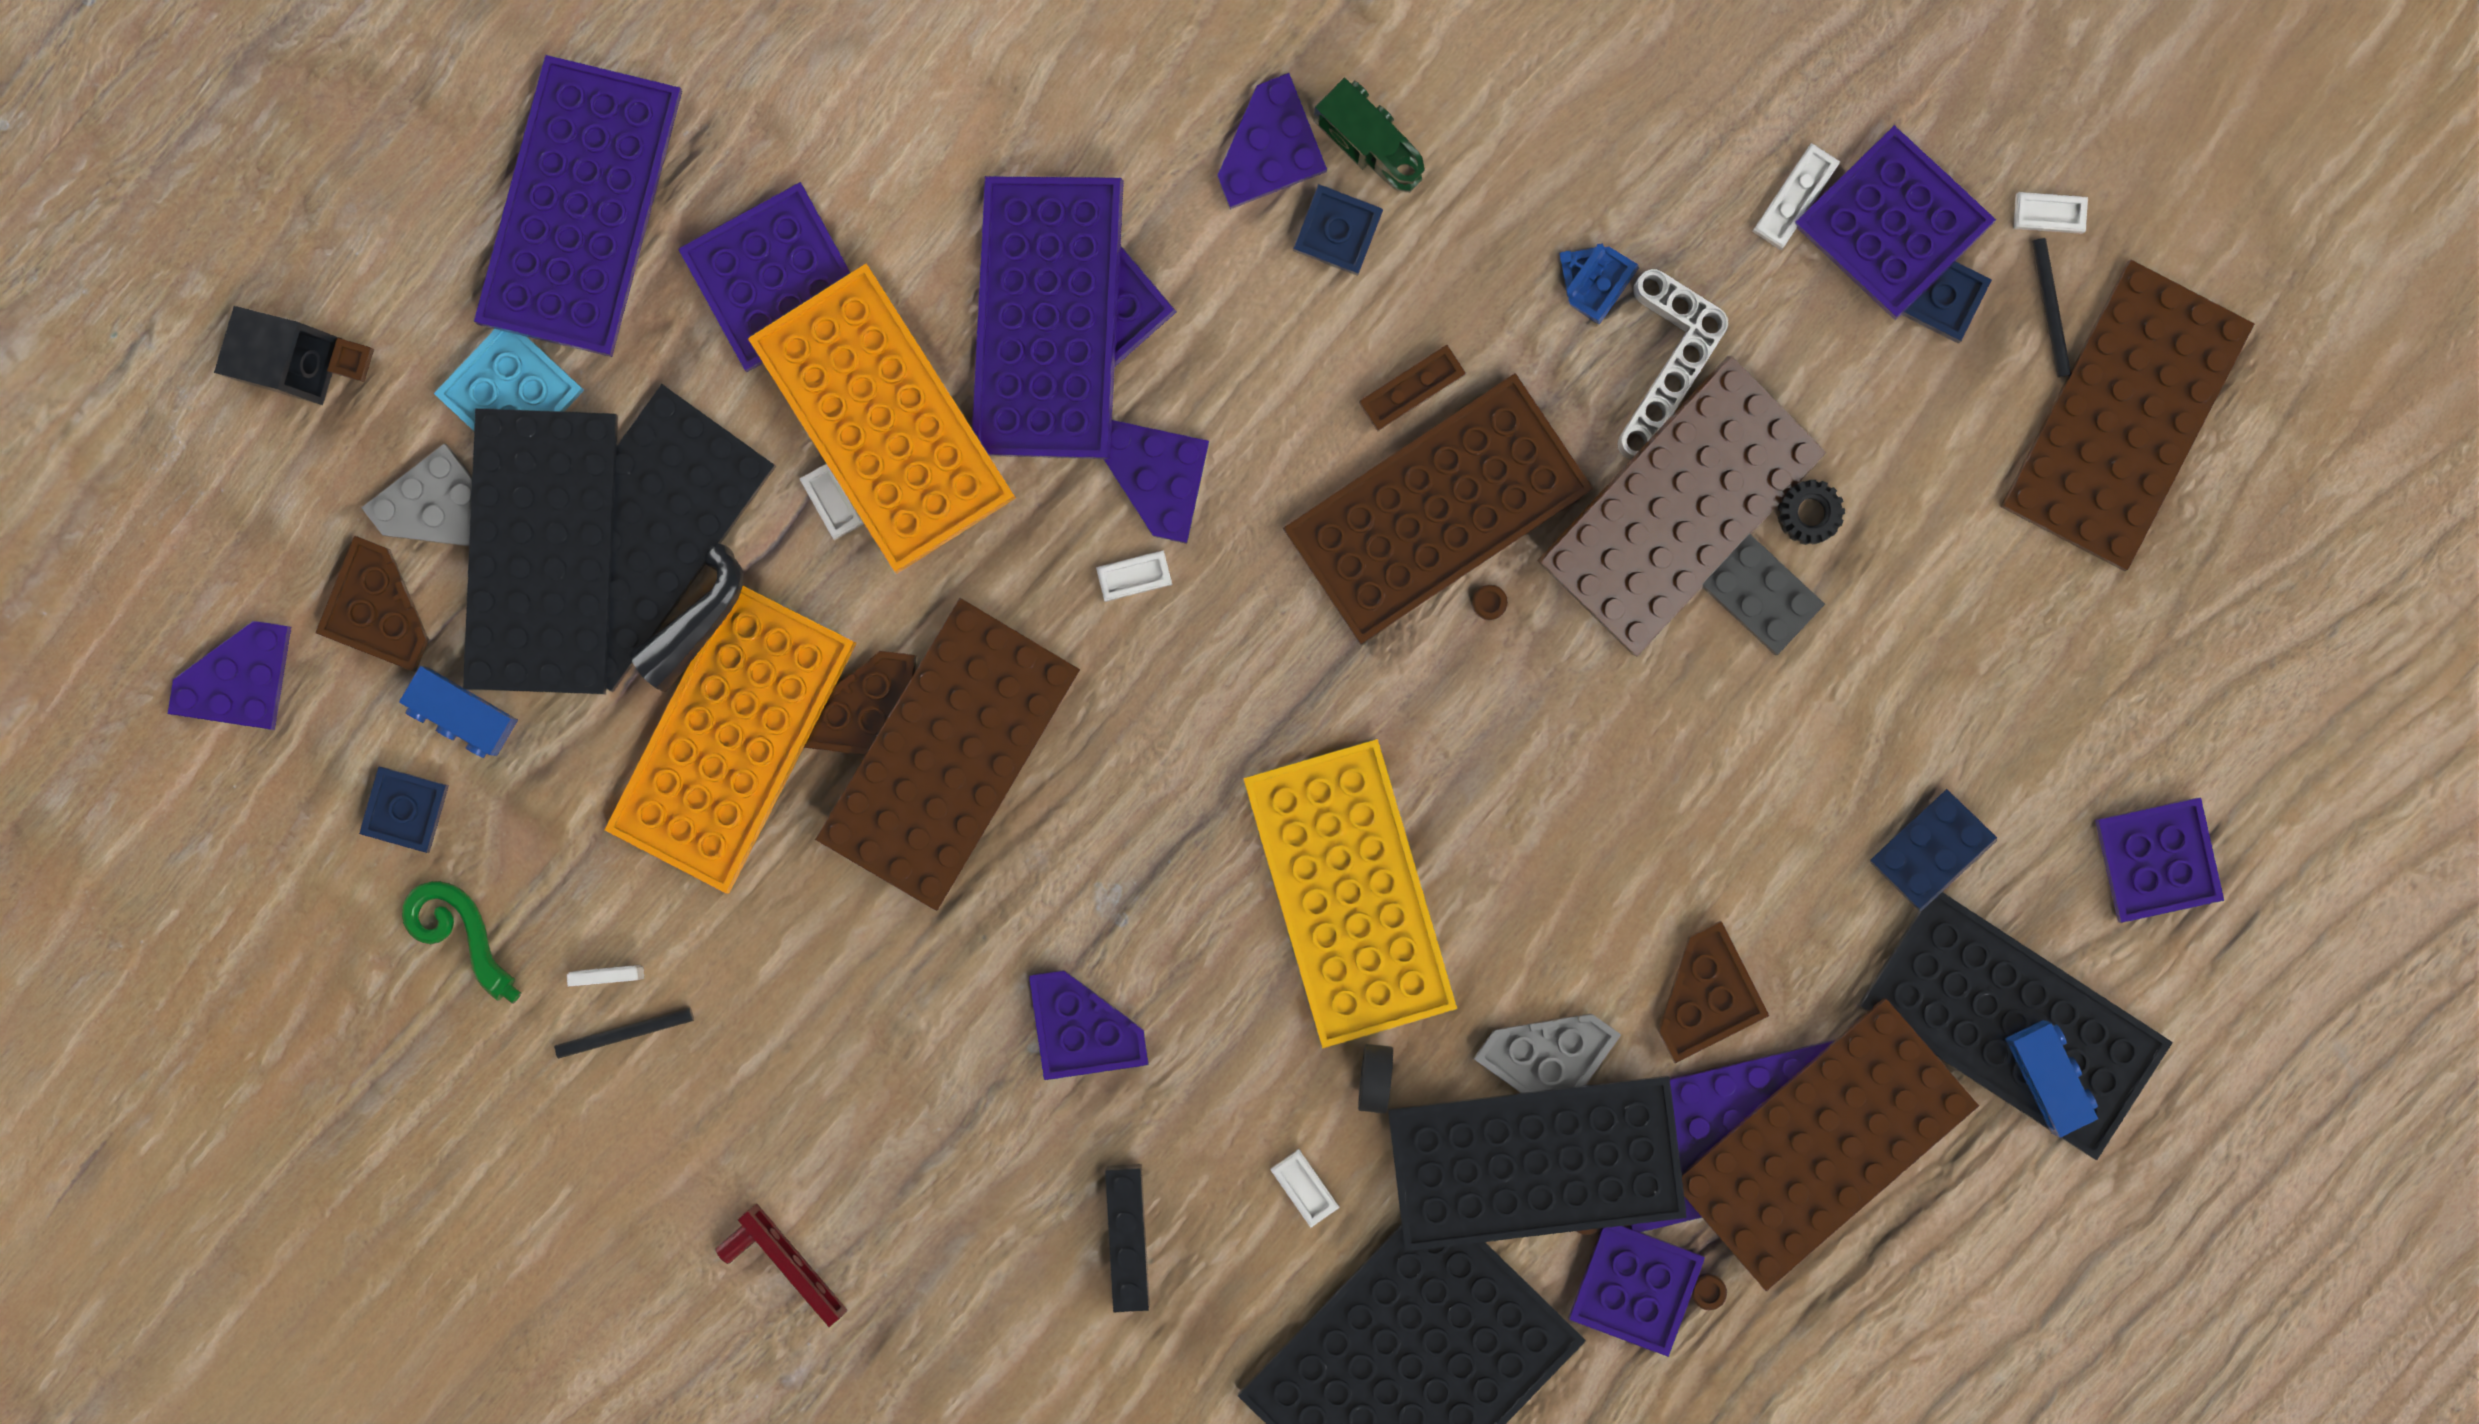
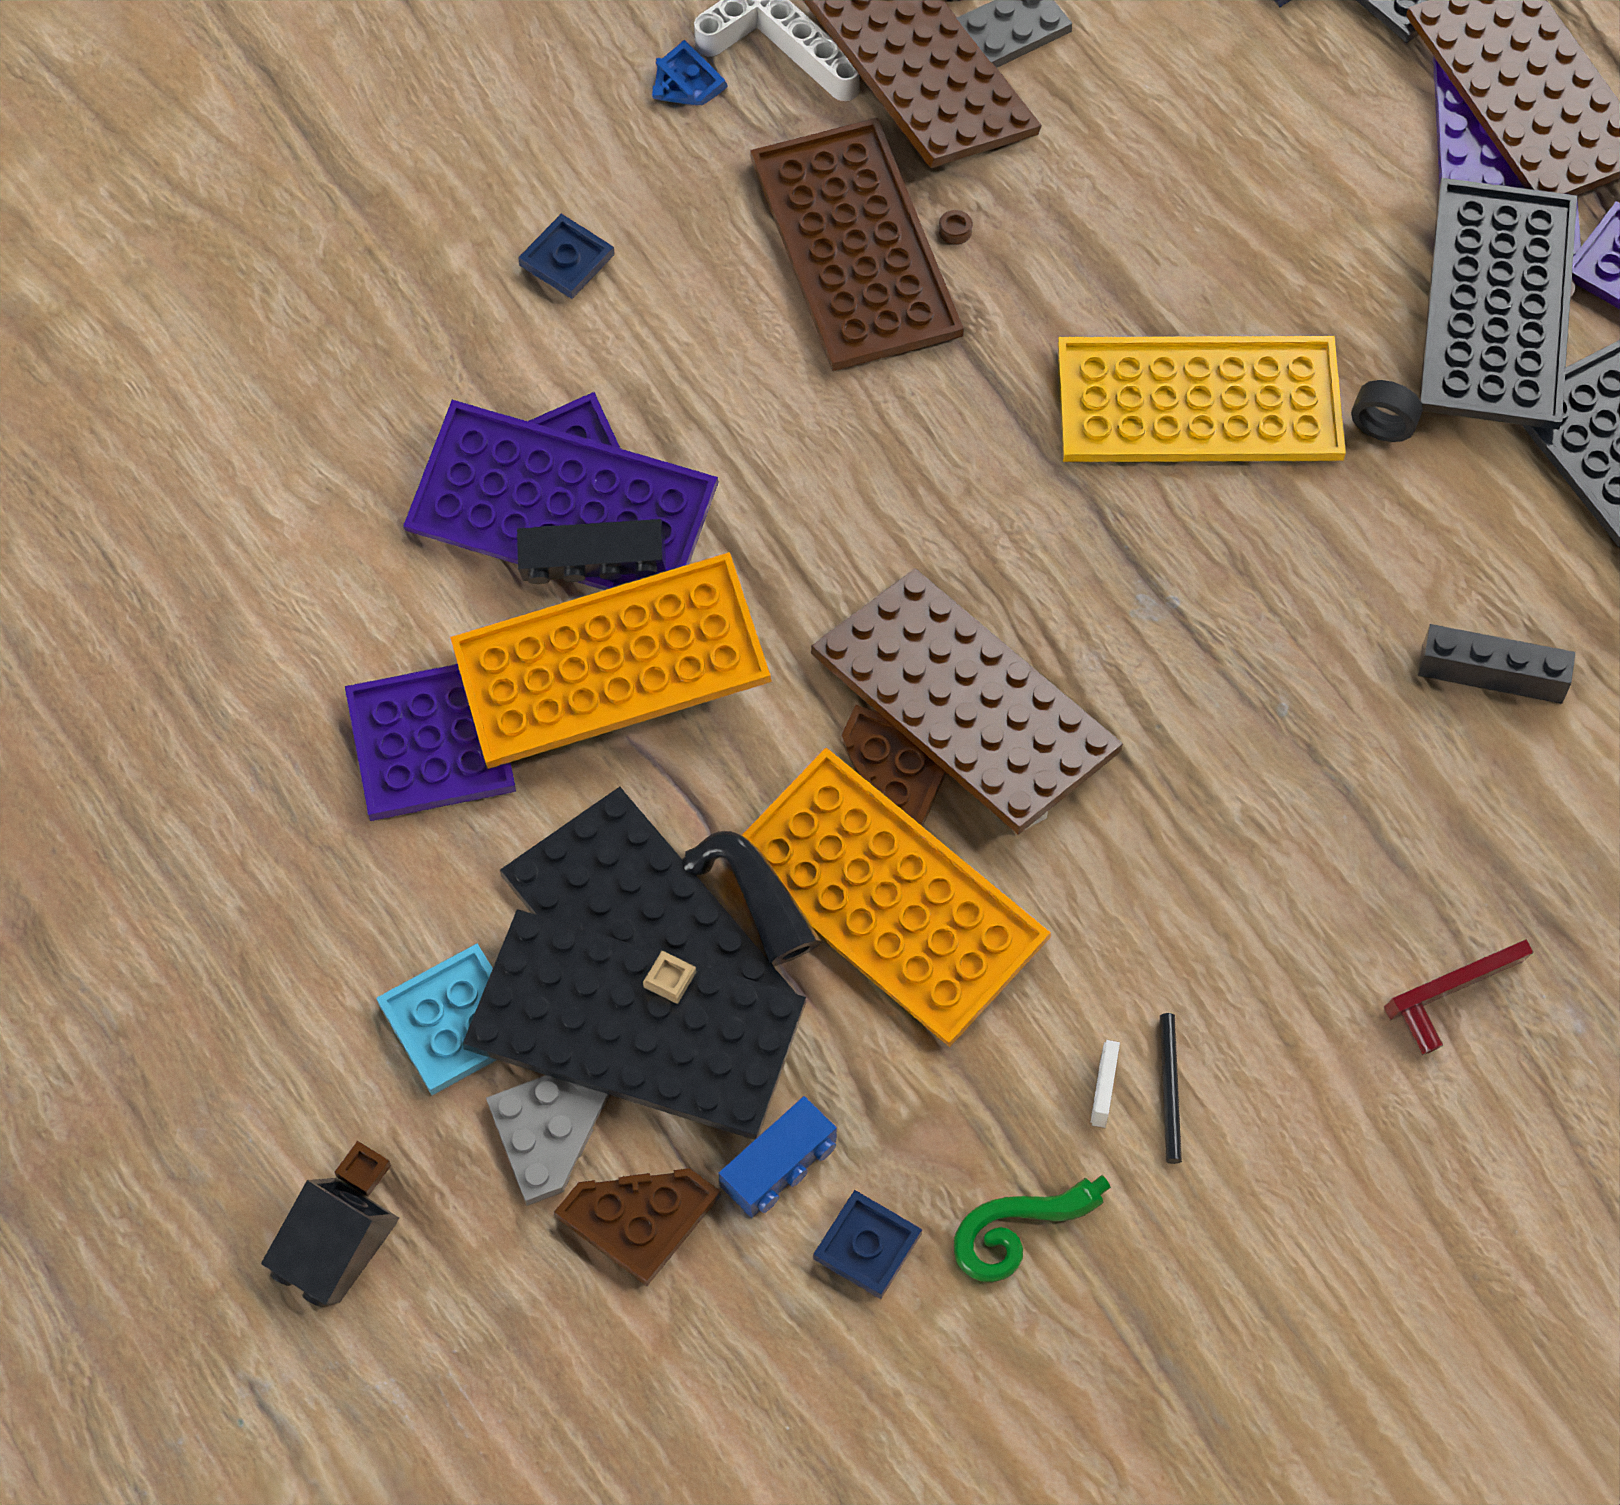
camera: 75 degrees left, 25 degrees down
(237, 679) = (670, 1389): dark purple plate -> none
(578, 206) = (289, 897): dark purple plate -> none
(580, 570) = (669, 977): none -> tan tile
(831, 502) = (674, 747): white tile -> none
(994, 363) = (591, 551): none -> black brick
(1081, 1030) = (1274, 656): dark purple plate -> none
(1134, 576) = (837, 504): white tile -> none
(1158, 476) = (752, 457): dark purple plate -> none
(1270, 146) = (465, 293): dark purple plate -> none
(1304, 1188) = (1478, 509): white tile -> none
(1368, 134) = (489, 201): dark green brick -> none
(1412, 388) = (735, 234): reddish brown plate -> none
(1548, 1052) = (1394, 279): light grey plate -> none
(1709, 995) = (1371, 144): reddish brown plate -> none

